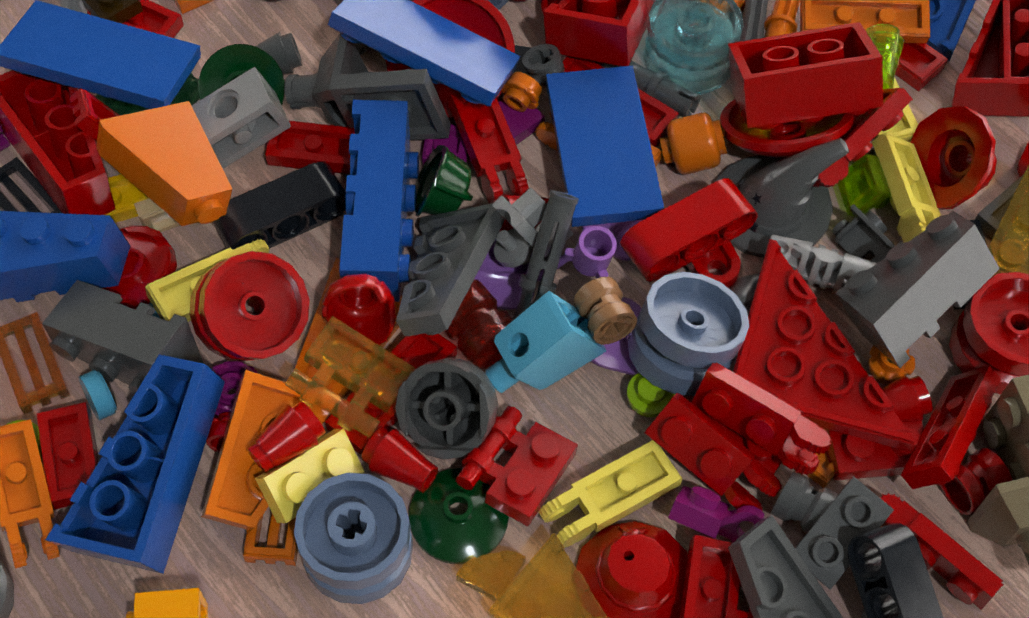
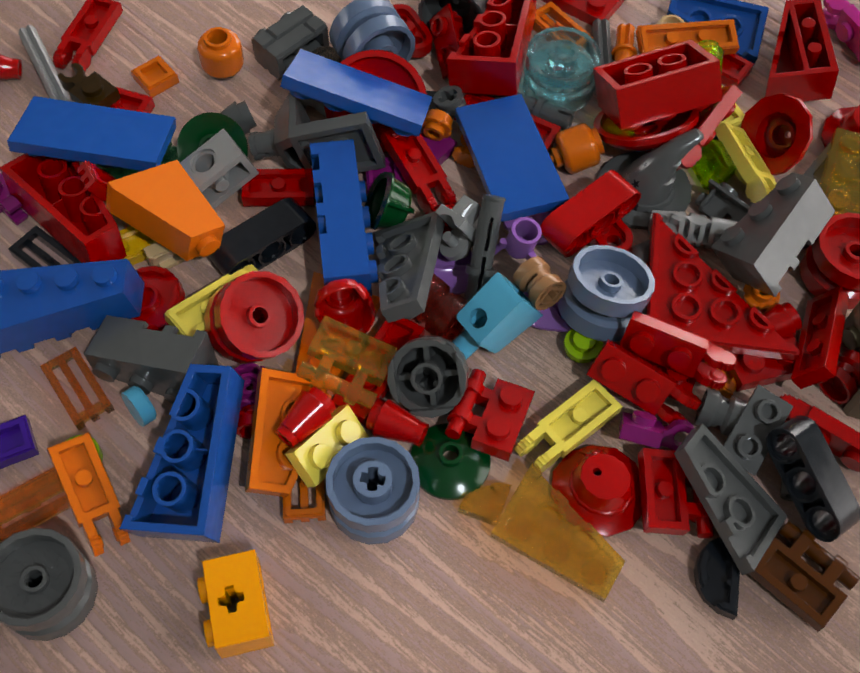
camera: 10 degrees left, 0 degrees up
(67, 450) = (122, 455): red plate -> none

